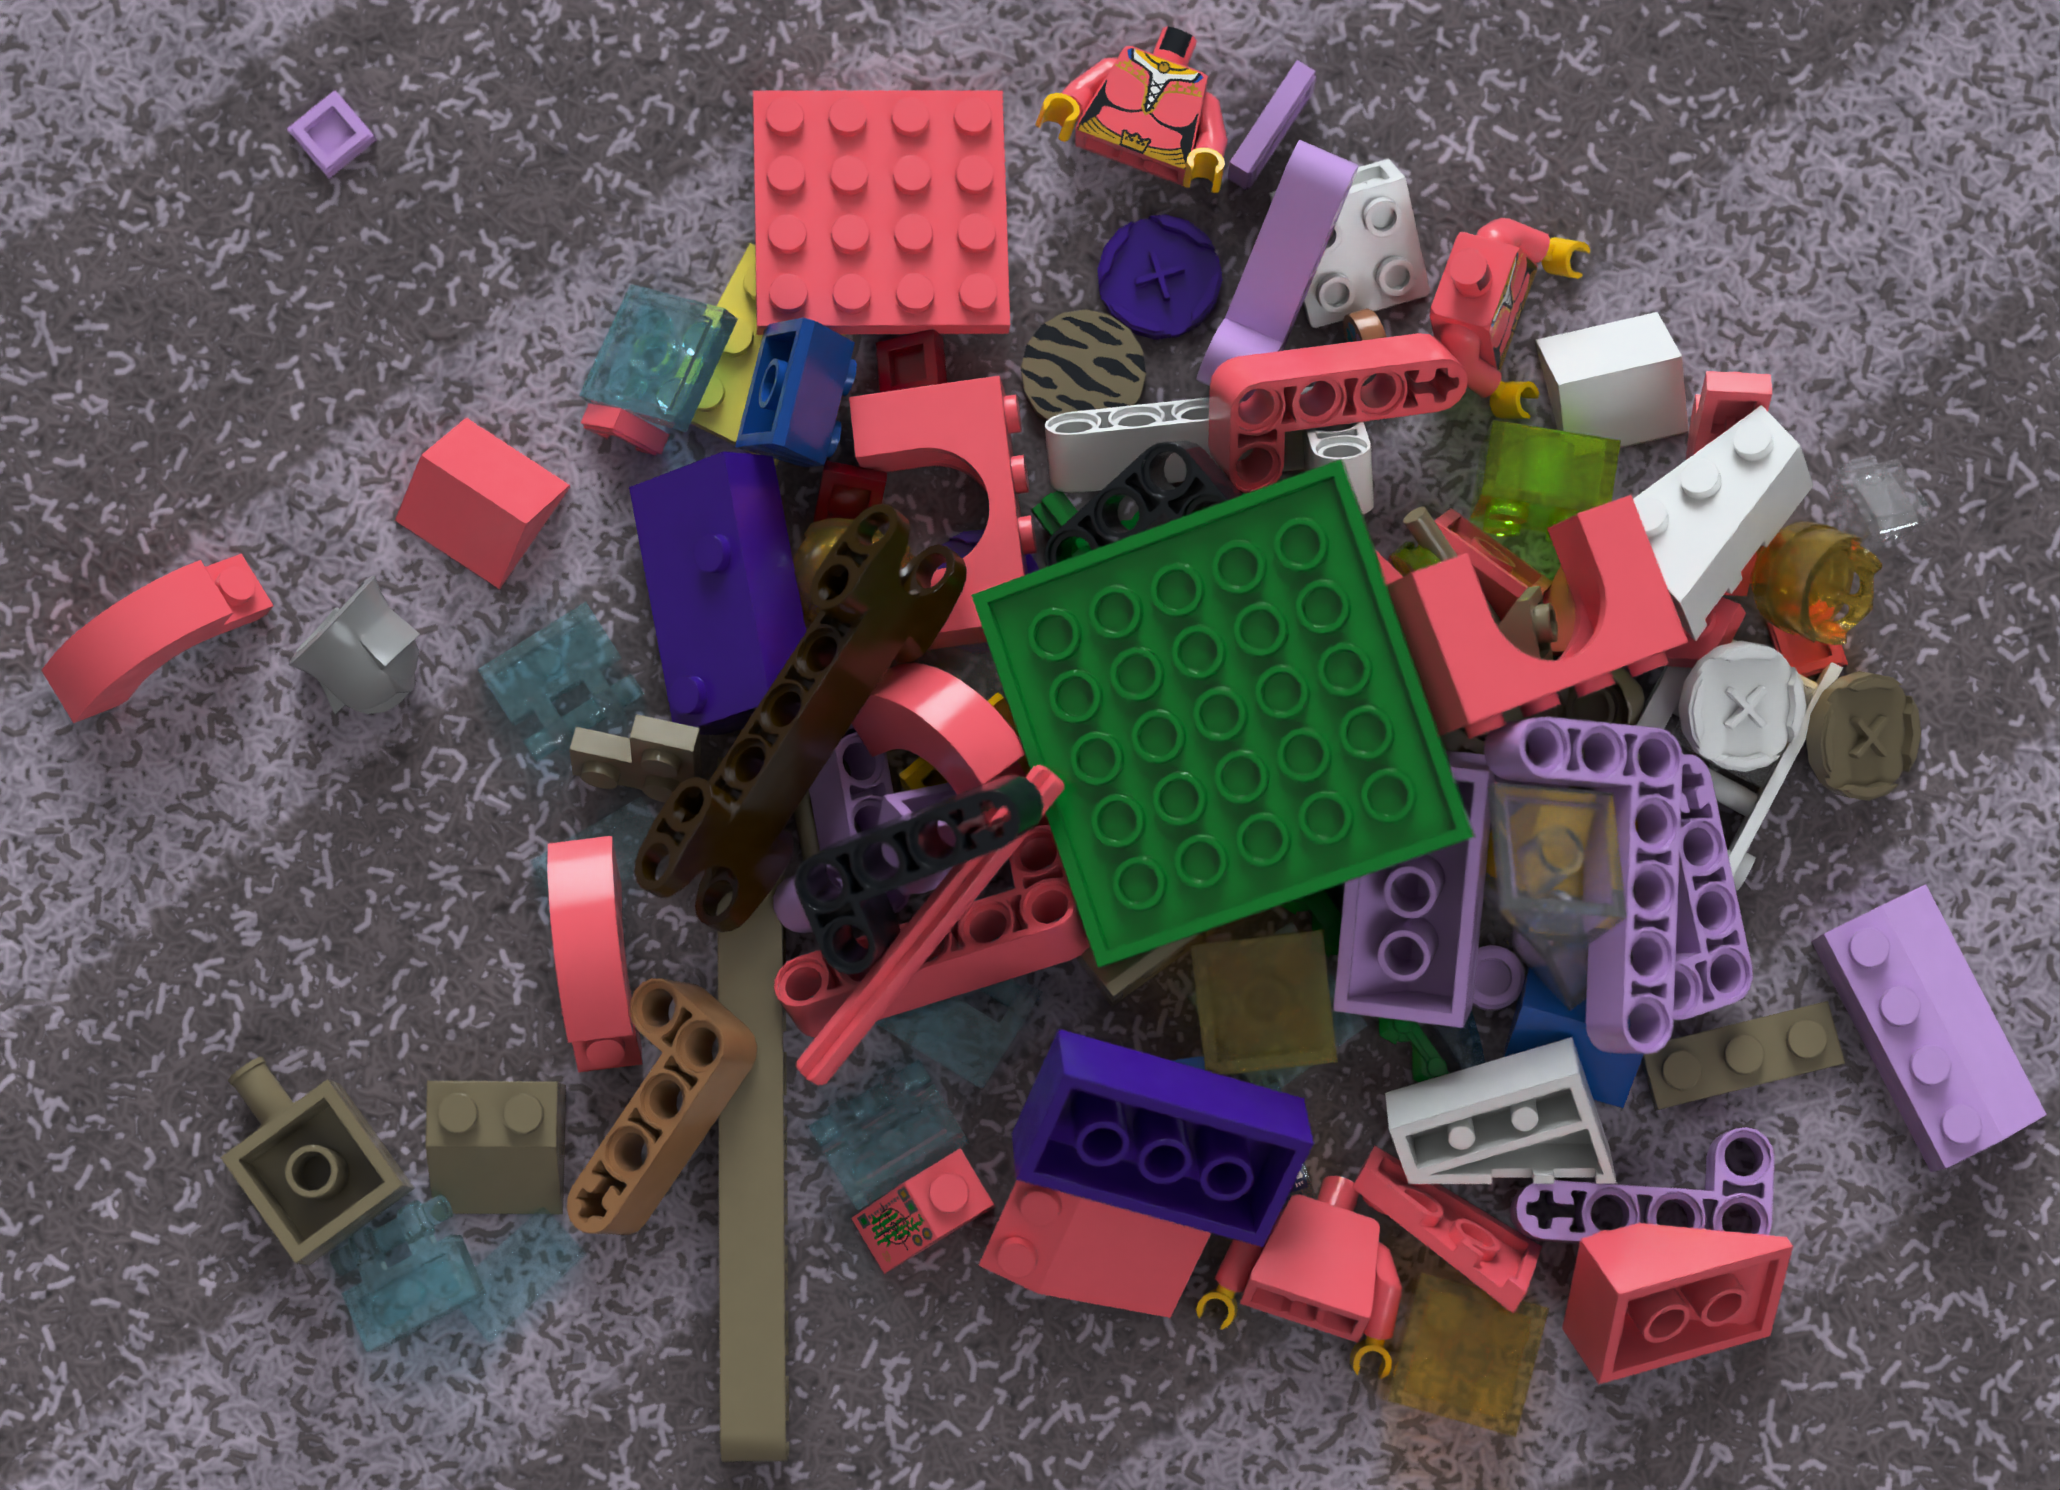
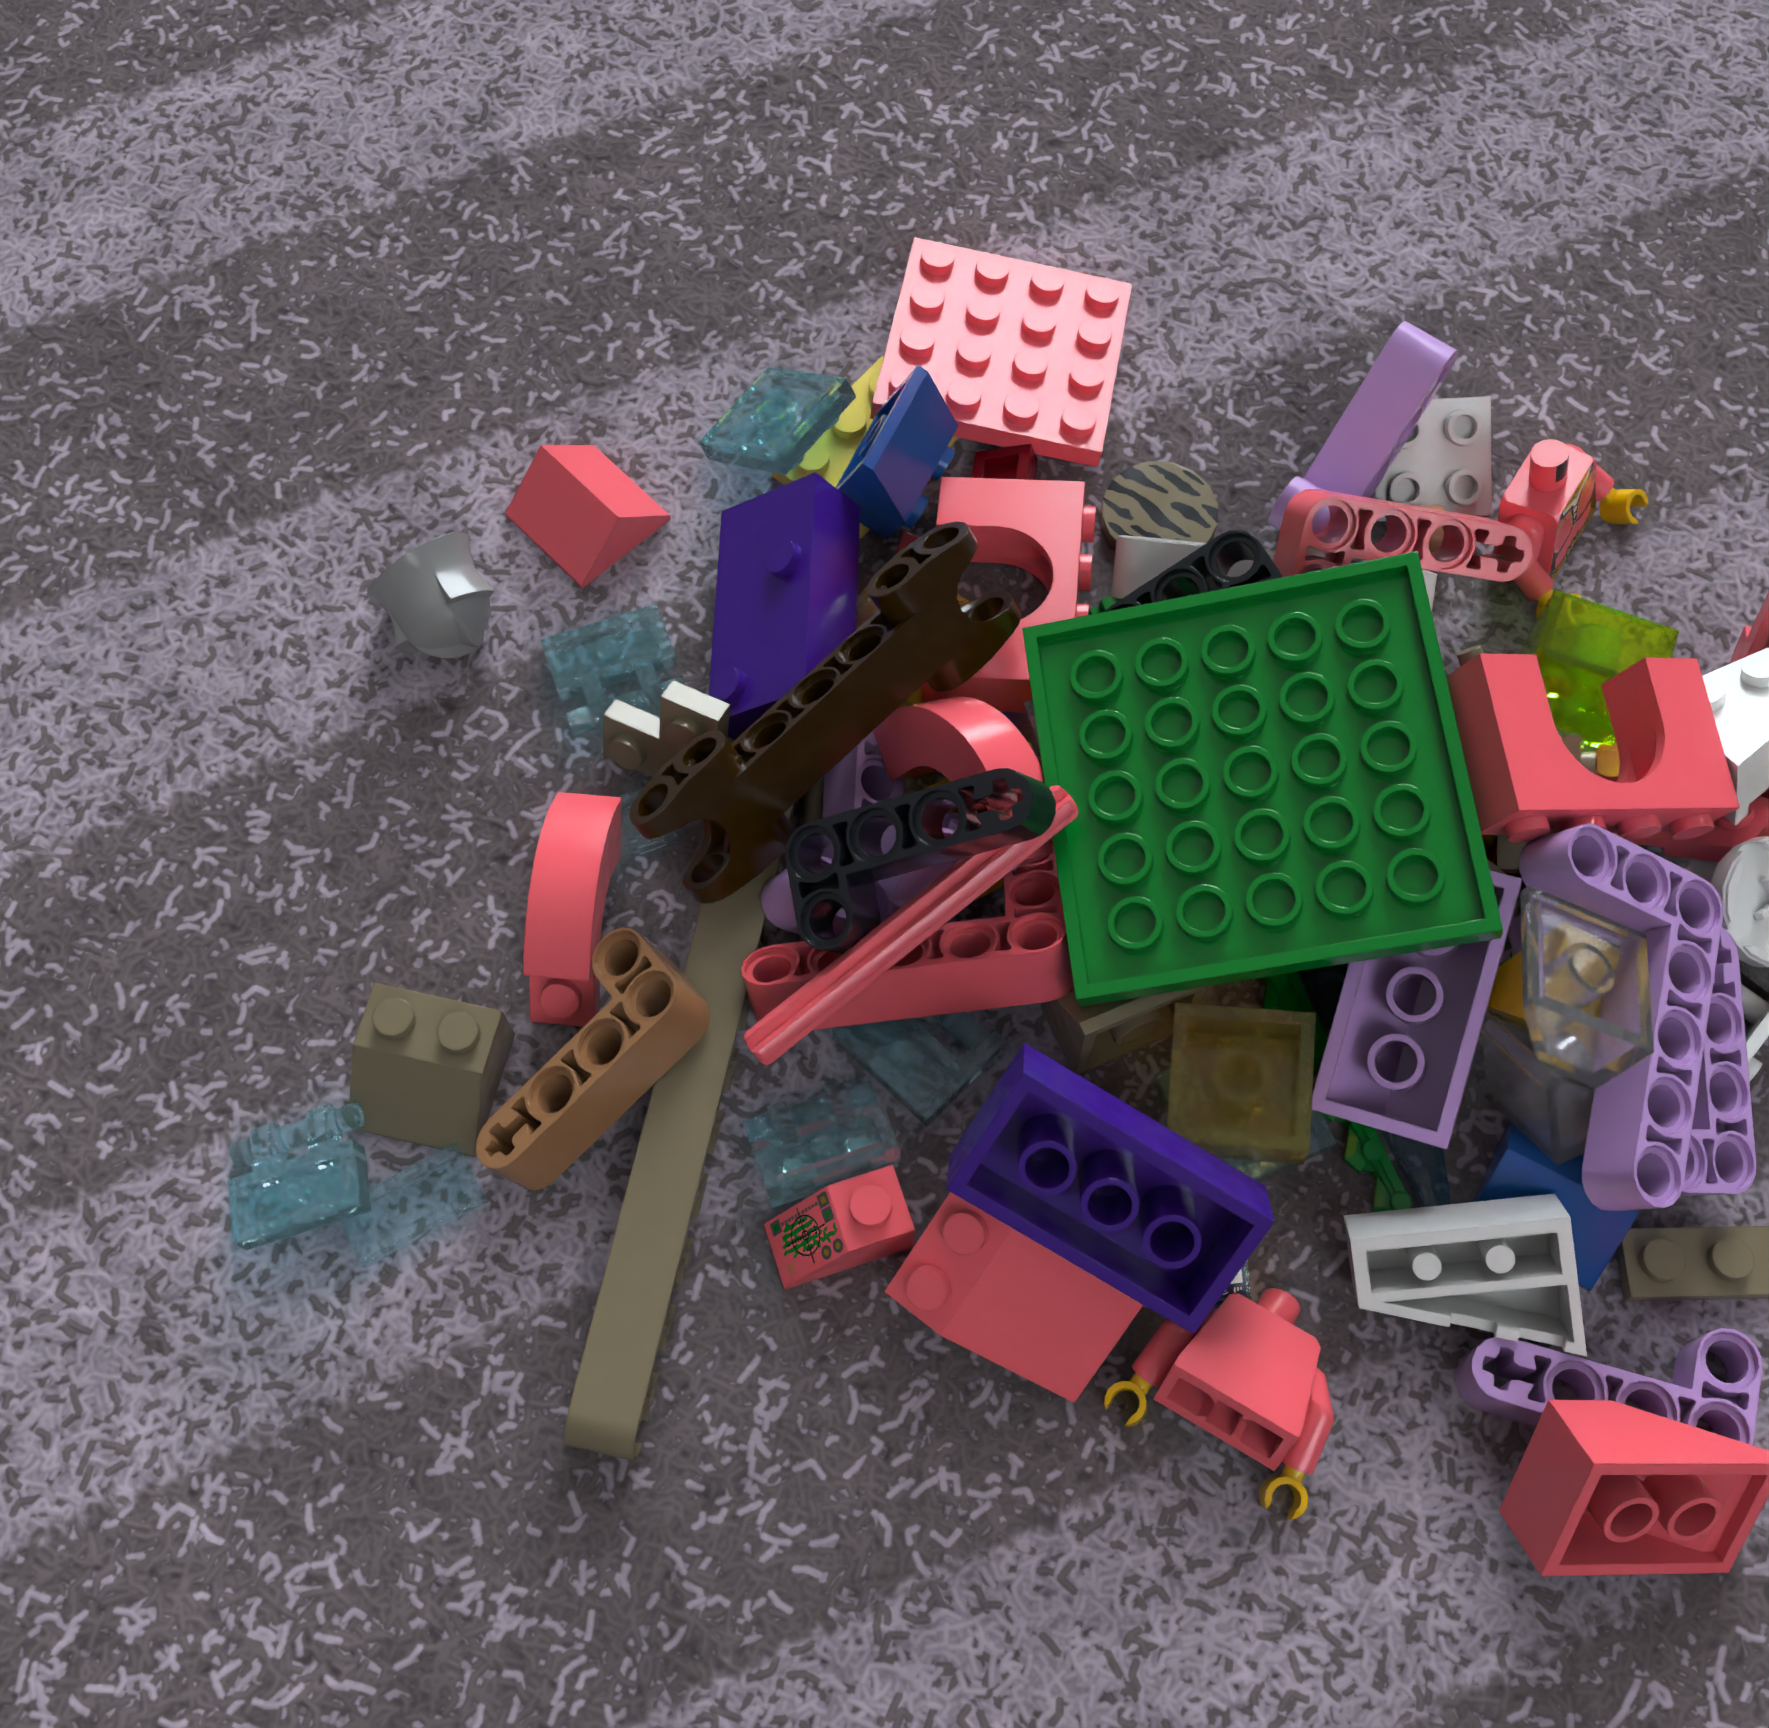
camera: 10 degrees right, 15 degrees down
(150, 627) = (247, 534): coral arch -> none
(311, 1164) = (238, 1046): dark tan brick -> none
(331, 134) = (545, 215): lavender tile -> none
(626, 426) = (732, 469): coral tile -> none
(1146, 112) = (1254, 317): torso -> none
(1159, 276) = (1244, 453): dark purple tile -> none
(1272, 125) = (1355, 359): lavender tile -> none
(1456, 1230) = (1394, 1368): coral wing -> none
(1465, 1355) = (1393, 1512): clear yellow brick -> none
(1497, 978) = (1476, 1130): lavender tile -> none
(1616, 381) = (1677, 598): white slope -> none

